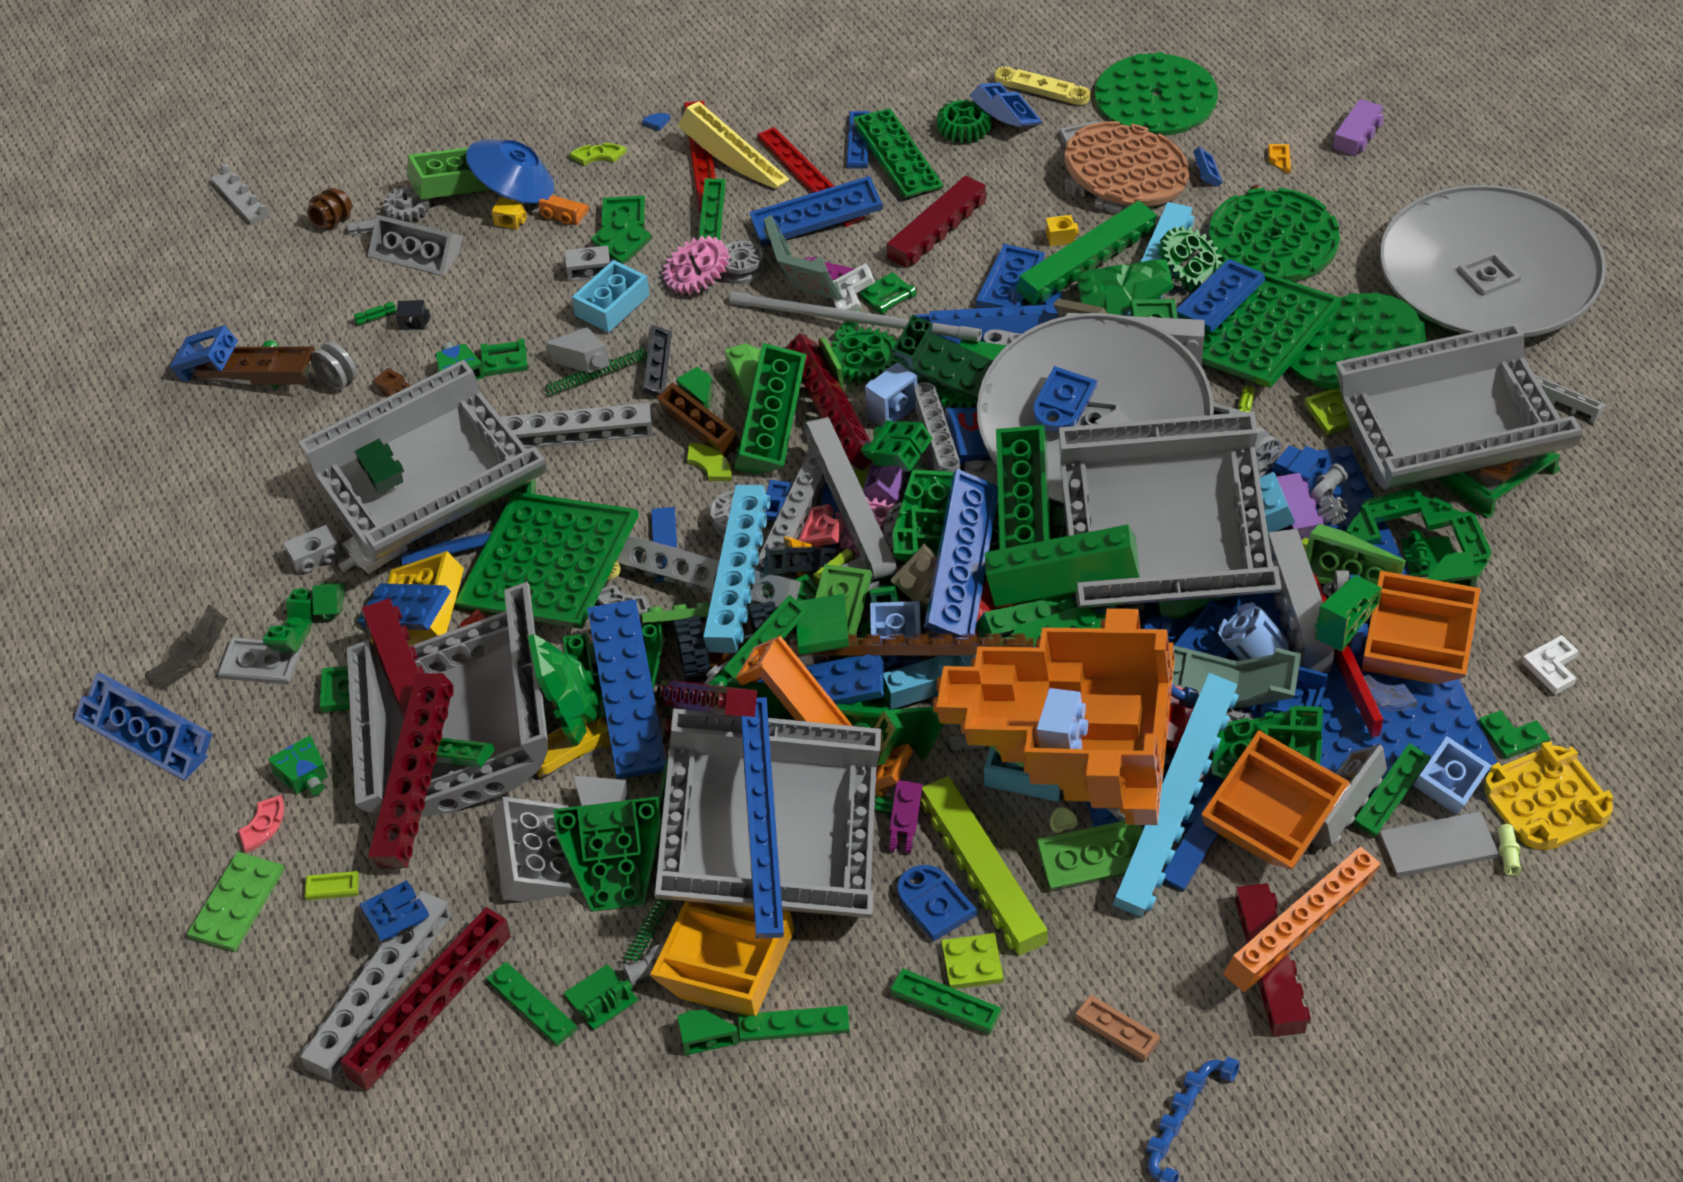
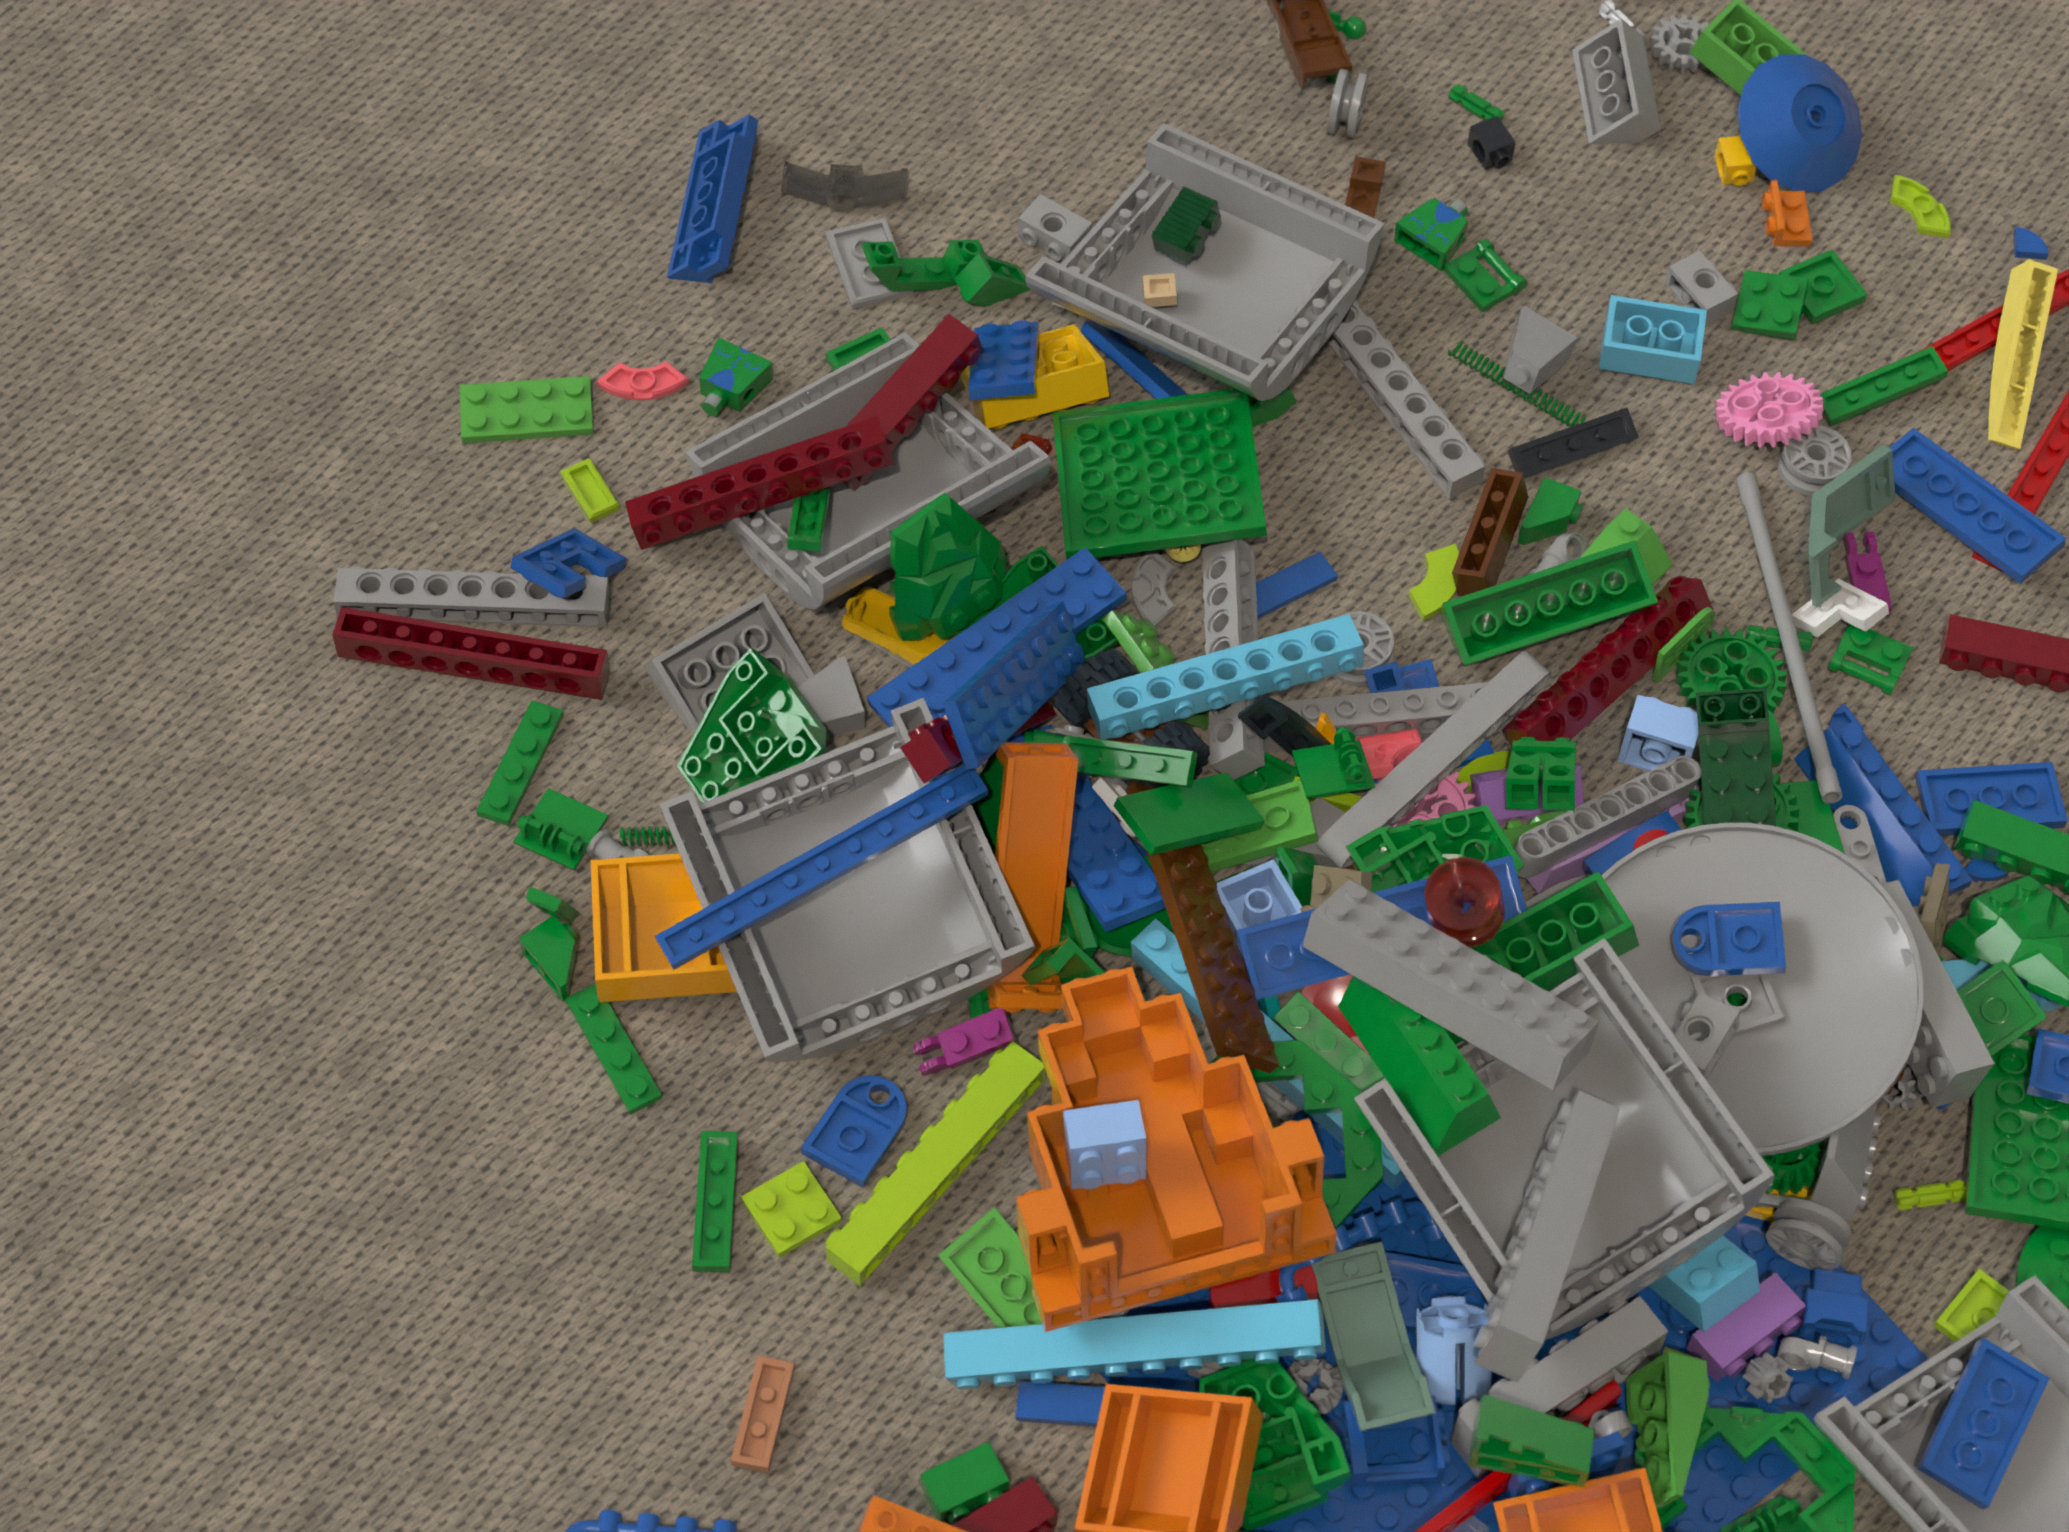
camera: 60 degrees right, 10 degrees up
(413, 498) = (1159, 290): none -> tan plate
(668, 1013) = (551, 905): none -> green tile
(693, 657) = (1013, 684): none -> blue plate
(733, 400) = (1558, 552): none -> light grey connector
(827, 544) = (1334, 767): none -> green hinge
(985, 485) = (1463, 882): none -> clear red wheel
(1037, 520) = (1451, 984): none -> light grey brick
(1220, 930) = (964, 1483): none -> green brick
(1232, 537) = (1545, 1236): none -> light grey brick
(1409, 418) = (1983, 1423): none -> blue plate

